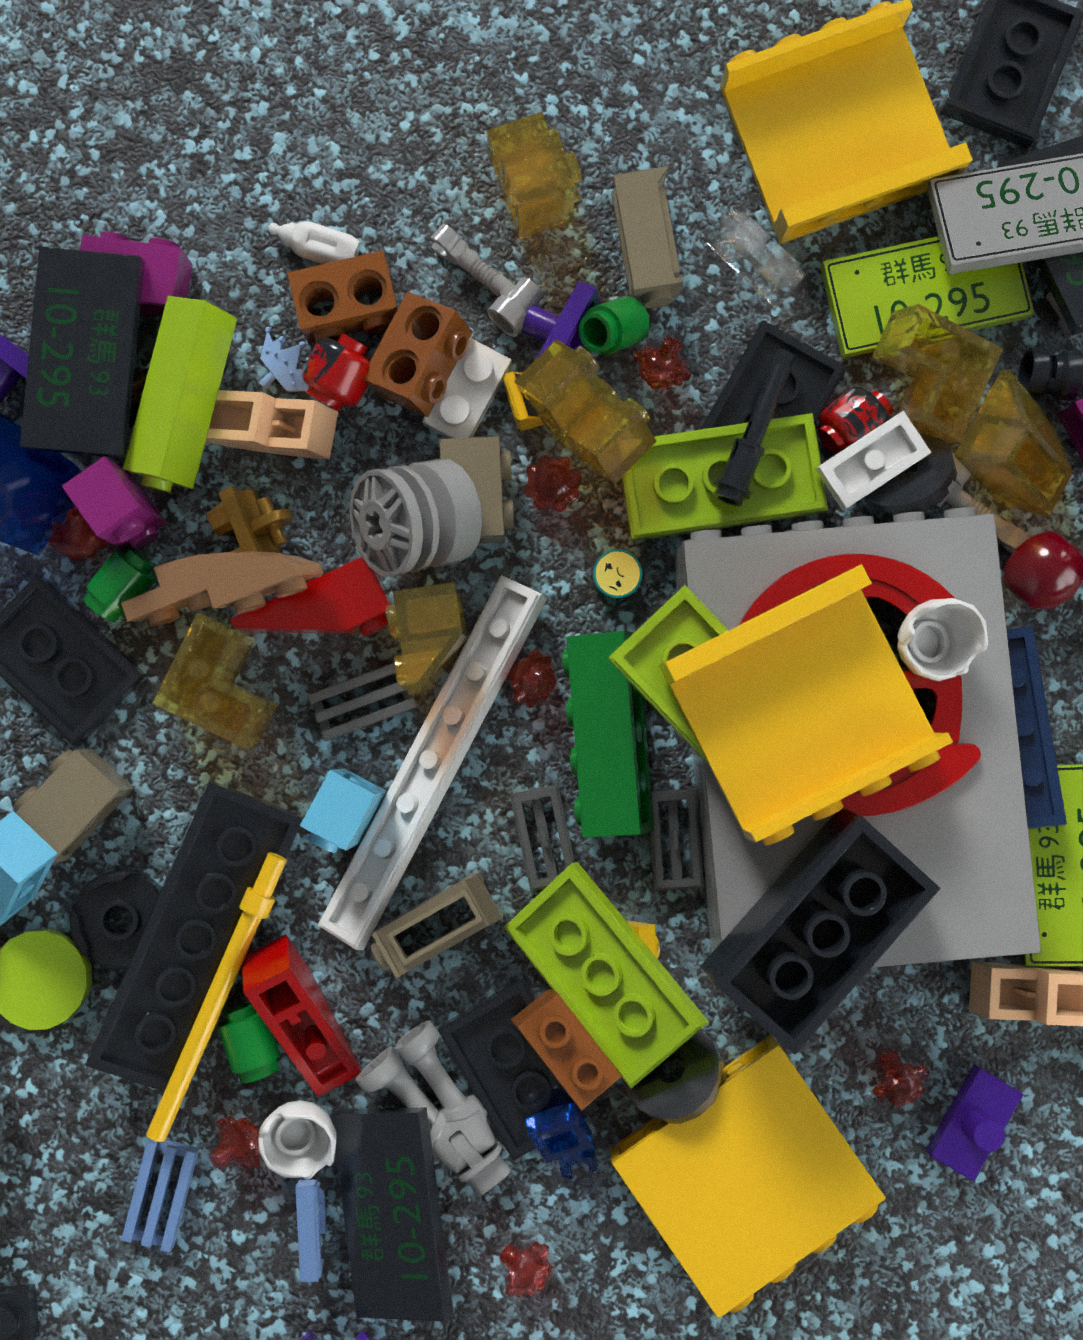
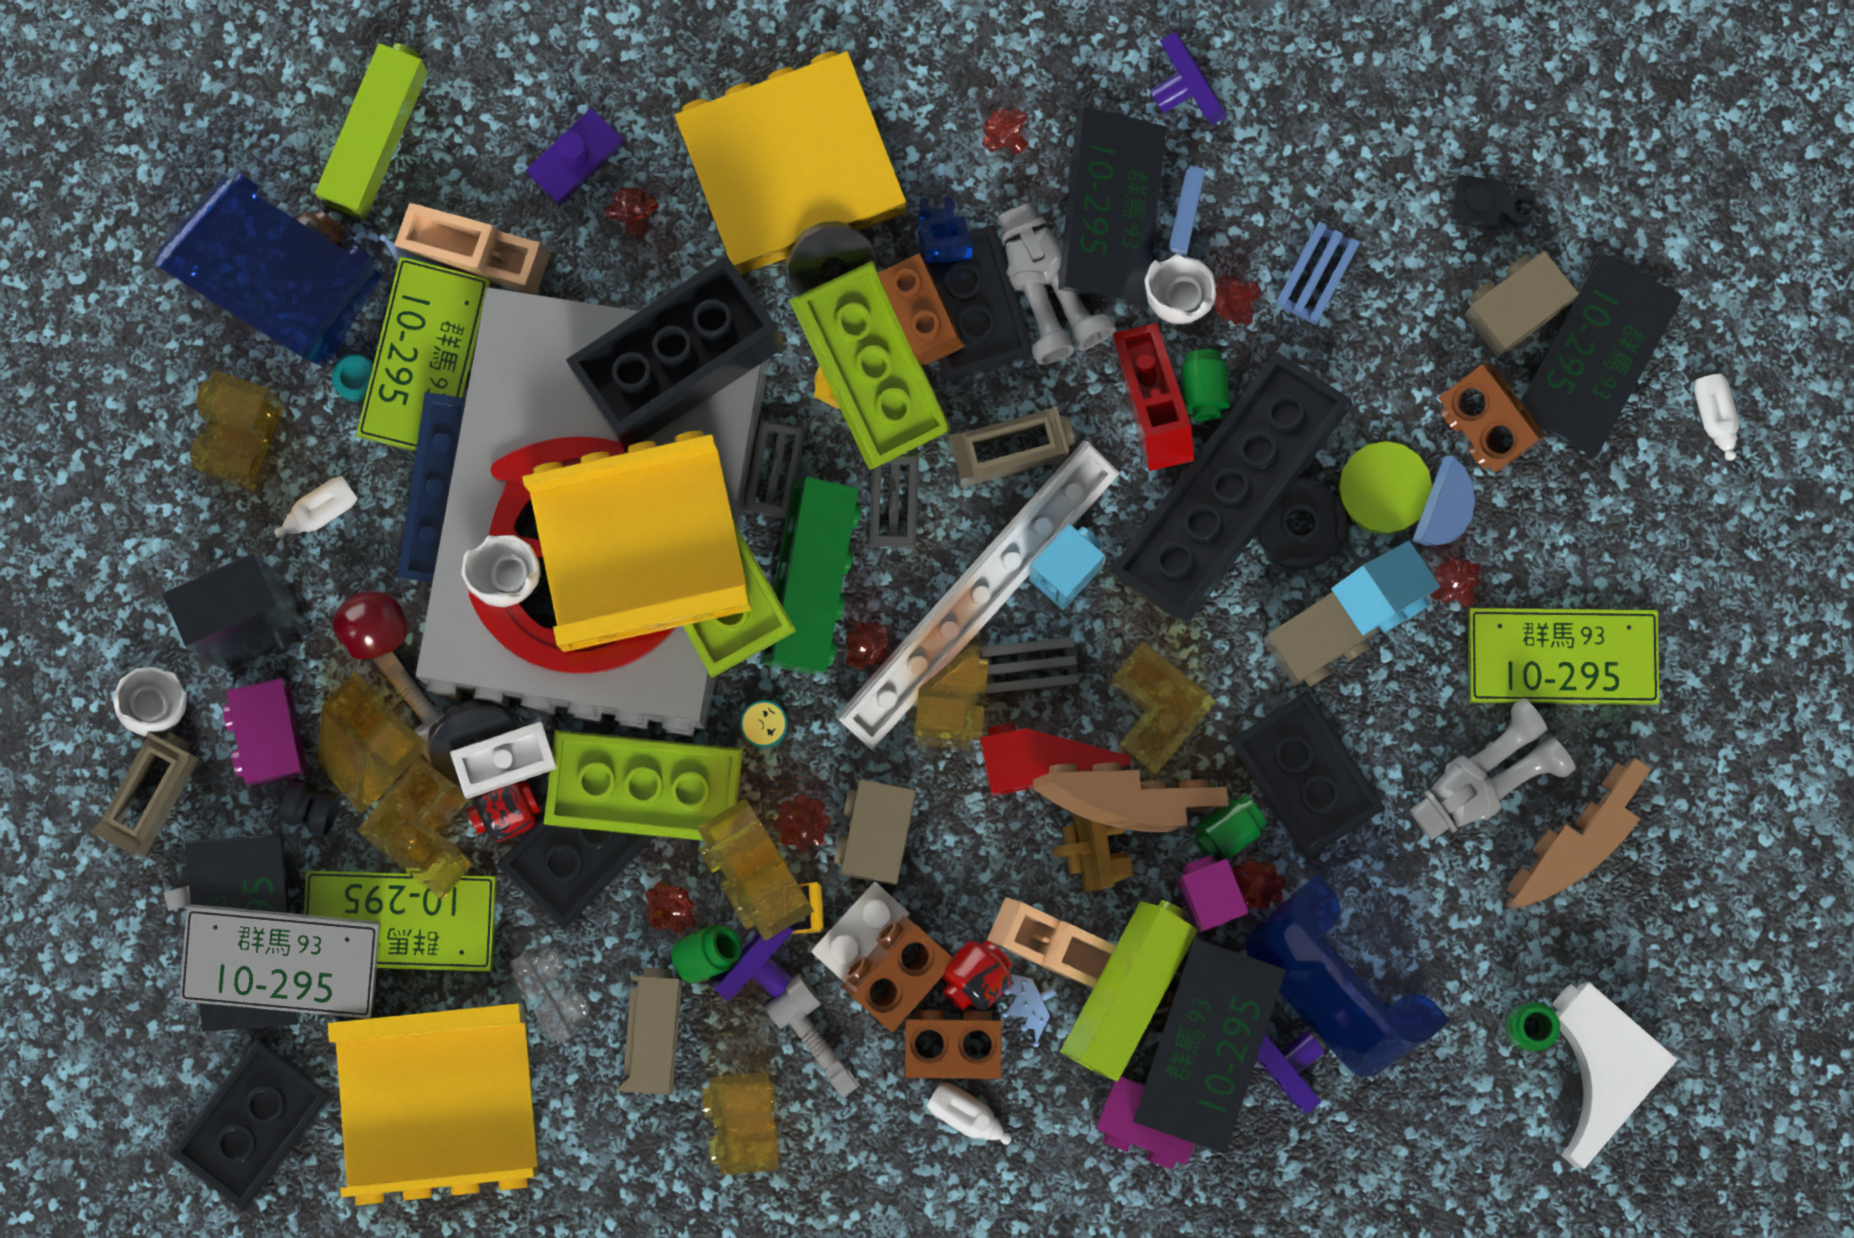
camera: 165 degrees left, 5 degrees down
(255, 906) = (1168, 501): yellow bar -> none
(415, 516) = (936, 812): light grey wheel -> none
(747, 452) = (616, 797): black pin -> none

